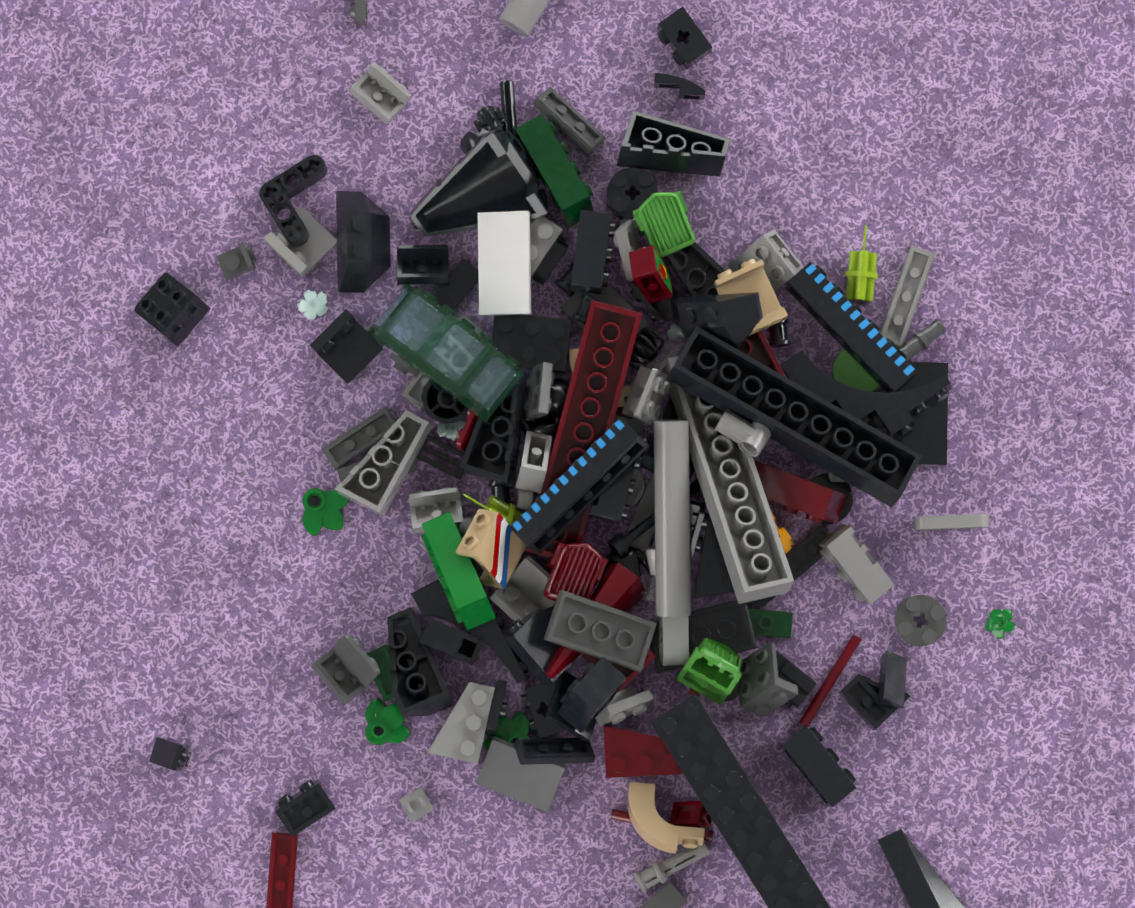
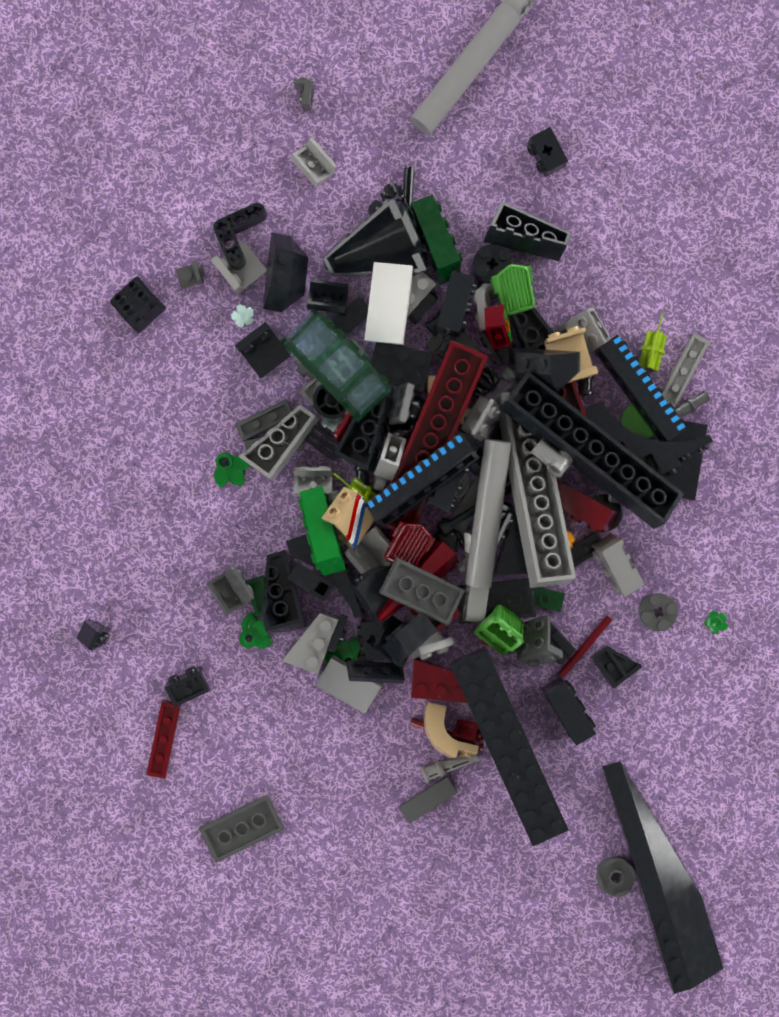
camera: 10 degrees right, 5 degrees up
(416, 804) = (270, 694): light grey tile -> none
(569, 120) = (452, 203): dark grey tile -> none
(686, 88) = (544, 191): black slope -> none
(892, 680) = (631, 653): black slope -> none
(951, 521) = (692, 543): light grey beam -> none

